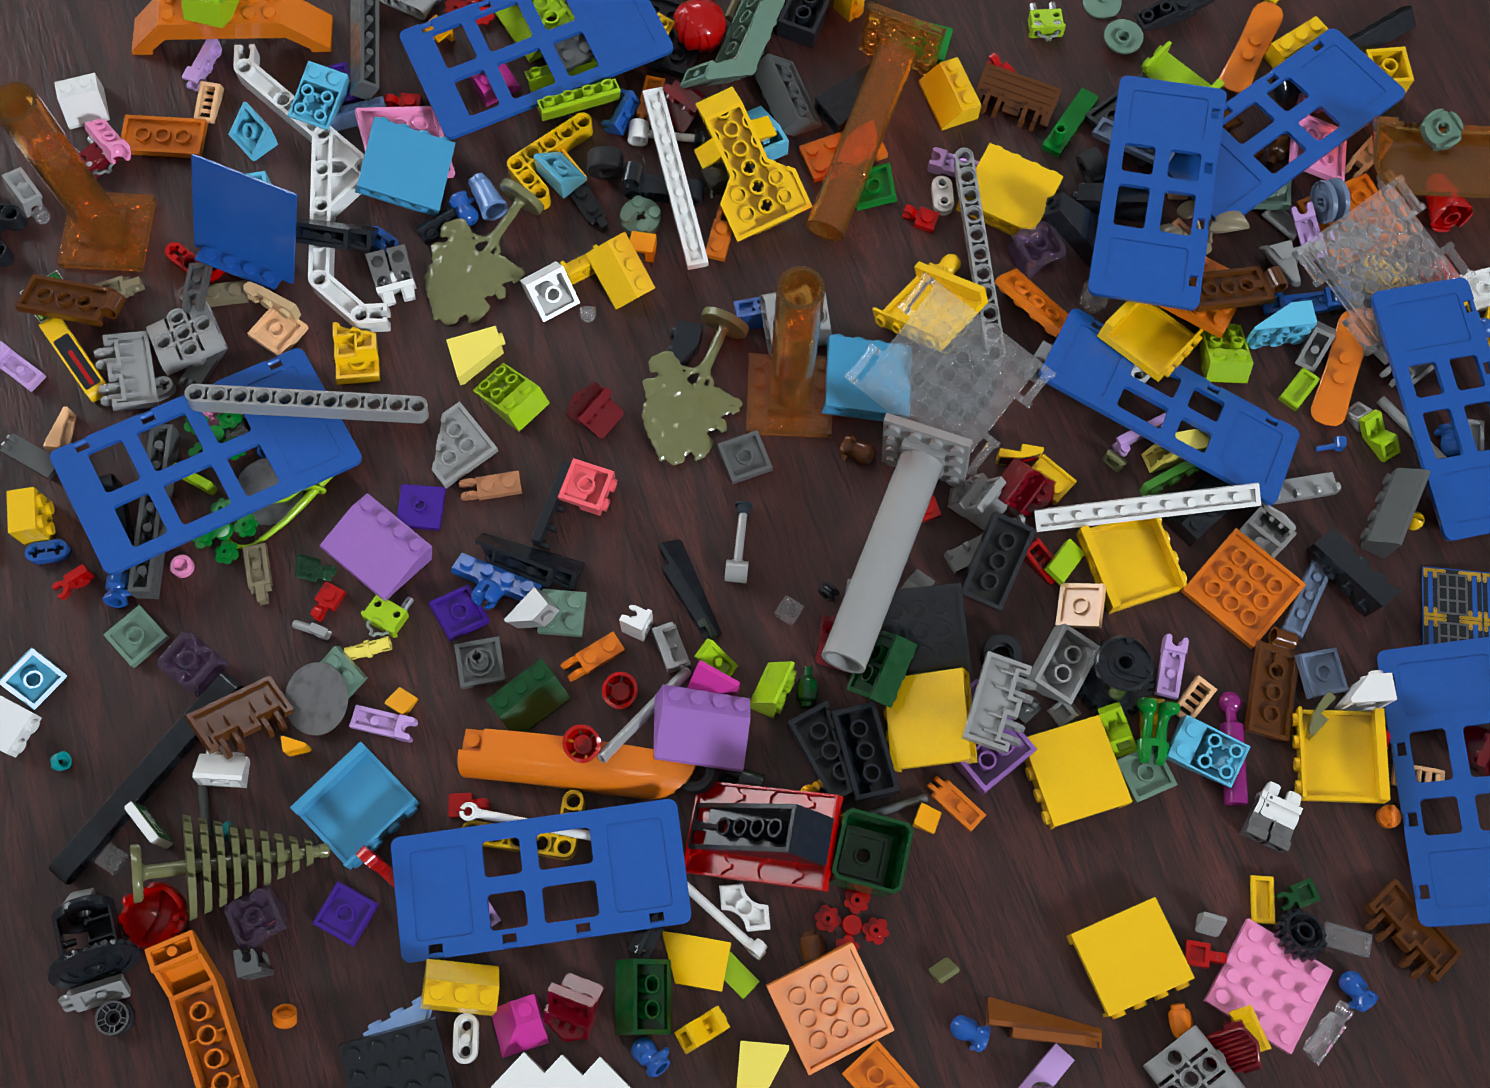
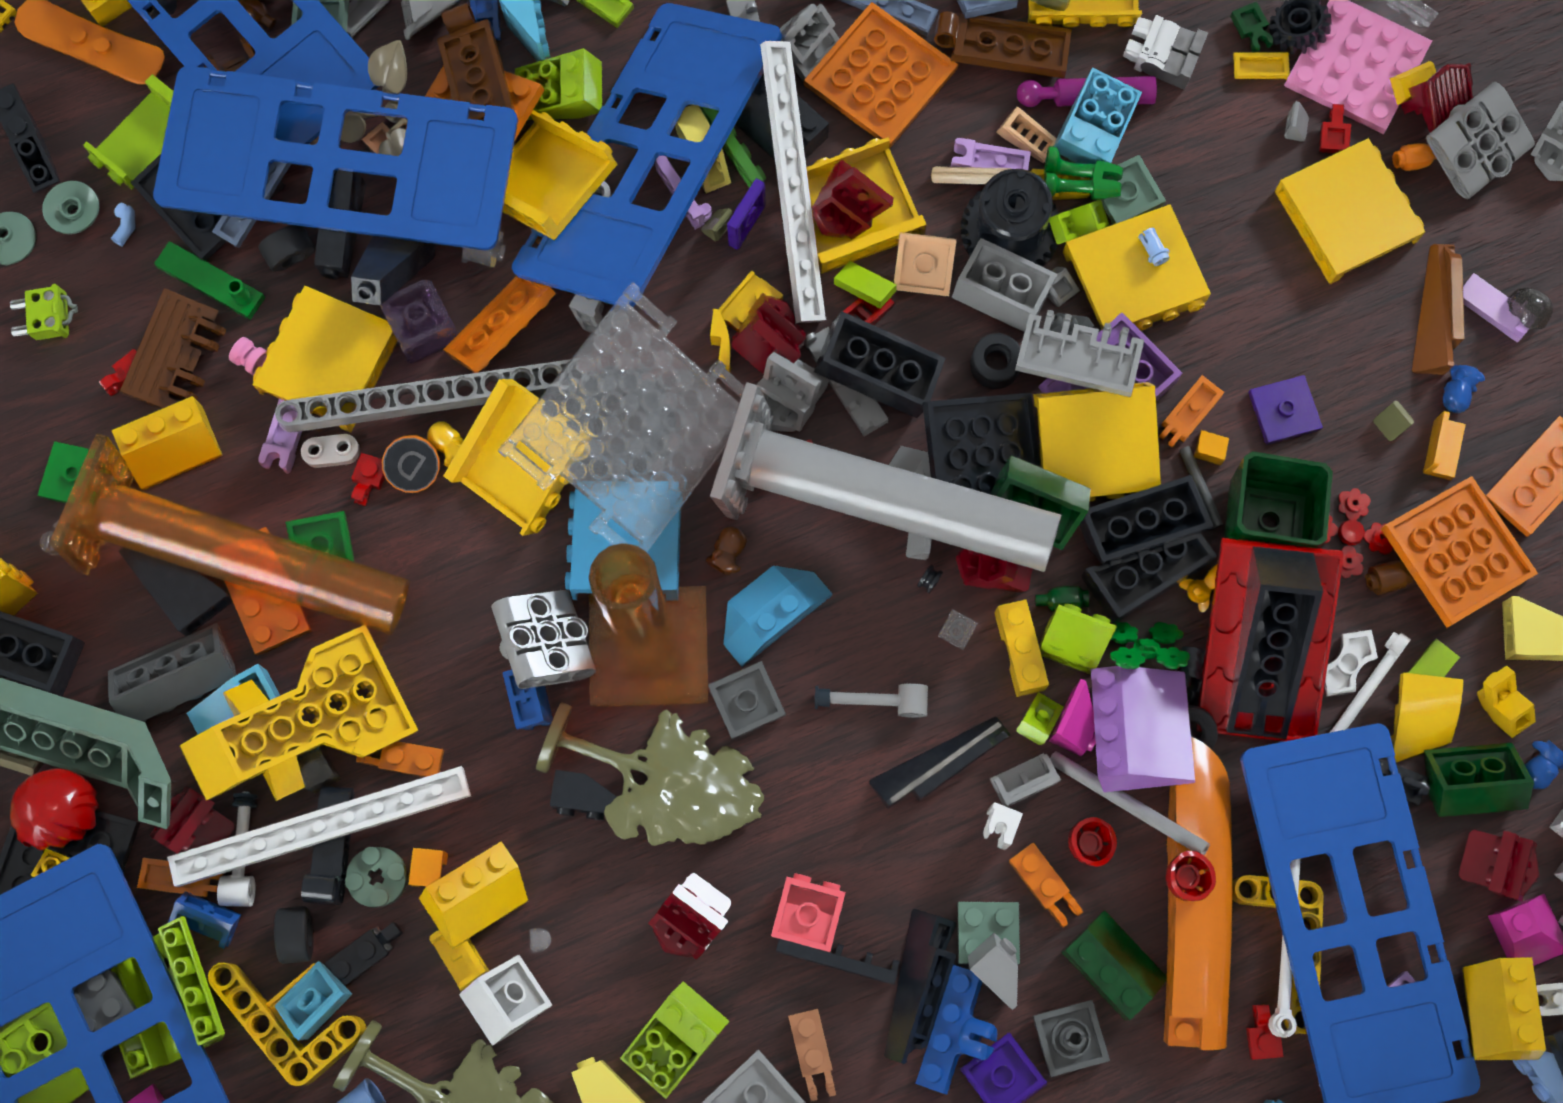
camera: 90 degrees left, 5 degrees up
(757, 653) = (1023, 648): none -> yellow arch
(764, 744) = (1148, 648): none -> green plant
(812, 479) = (770, 609): none -> dark azure wedge
(920, 1012) = (1444, 447): none -> light orange panel
(930, 243) = (410, 463): none -> black tile
(956, 882) = (1285, 409): none -> dark purple plate
(1014, 141) = (247, 355): none -> bright pink wheel
(1093, 781) = (1157, 253): none -> light blue pin
(1113, 71) = (127, 224): none -> light blue arm
(1120, 475) = (746, 214): none -> dark purple plate
(1131, 549) = (848, 202): none -> dark red piece
(1157, 647) = (964, 175): none -> tan axle

